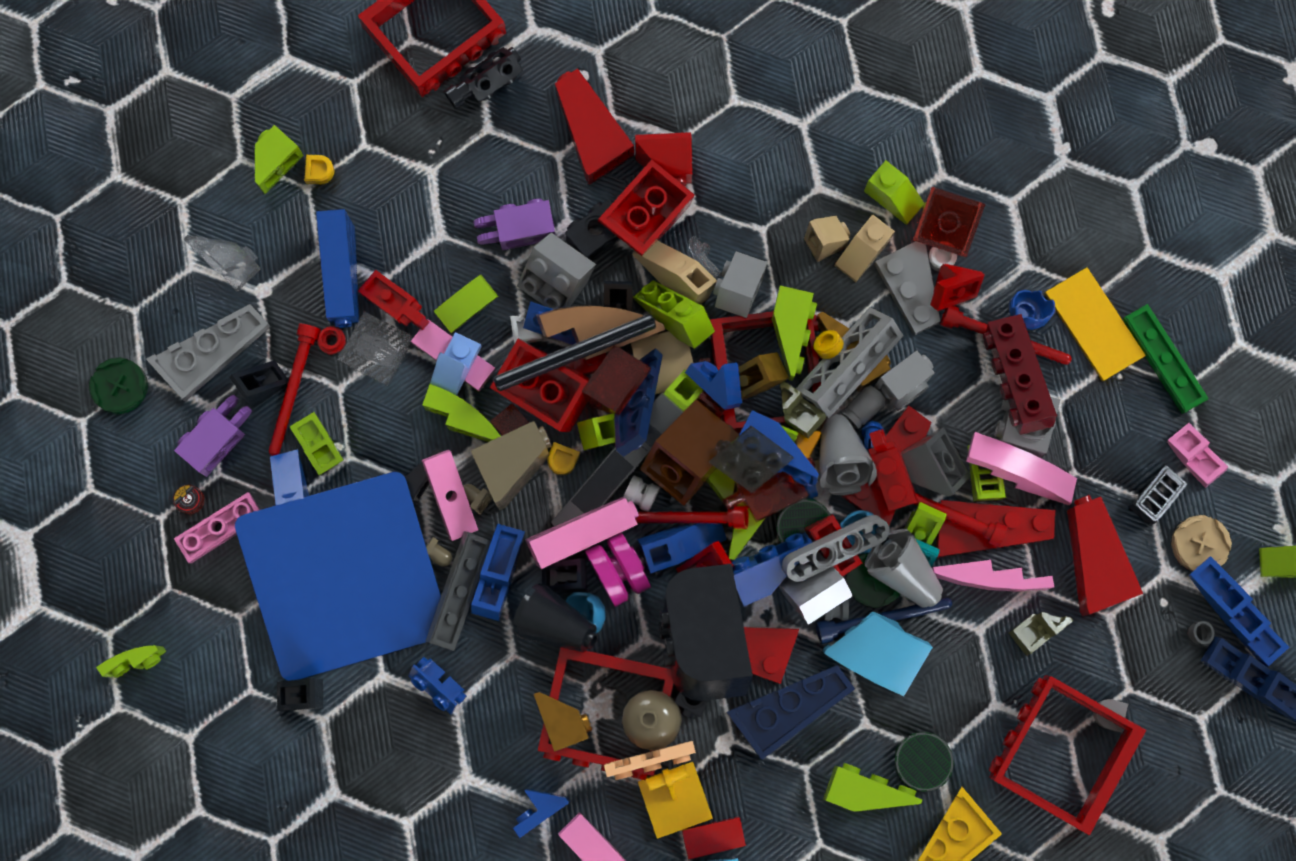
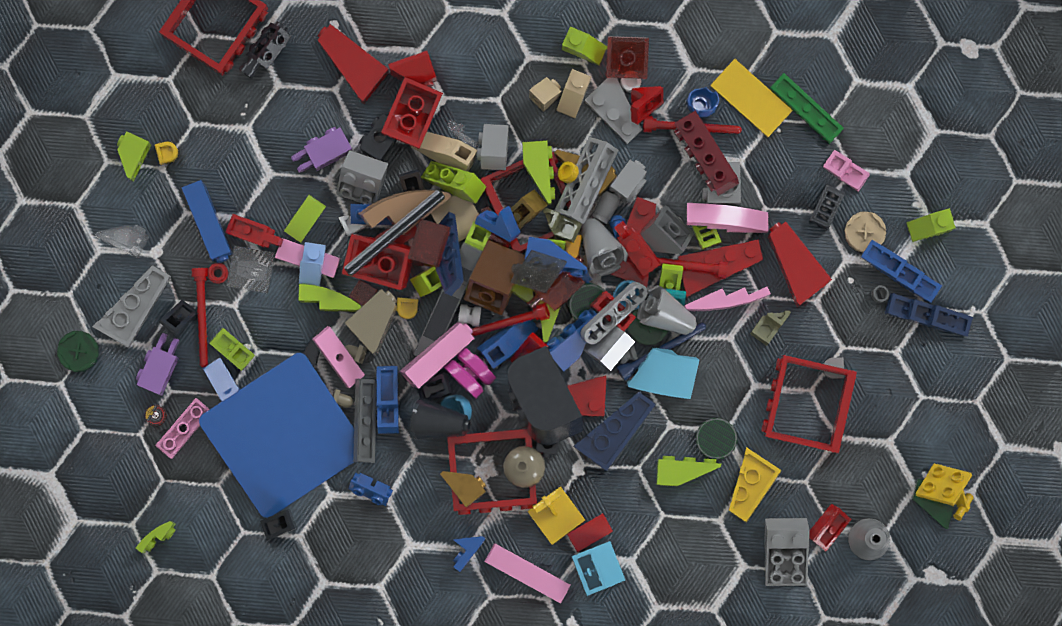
camera: 20 degrees left, 5 degrees up
(650, 761) = (532, 493): light nougat wing -> none

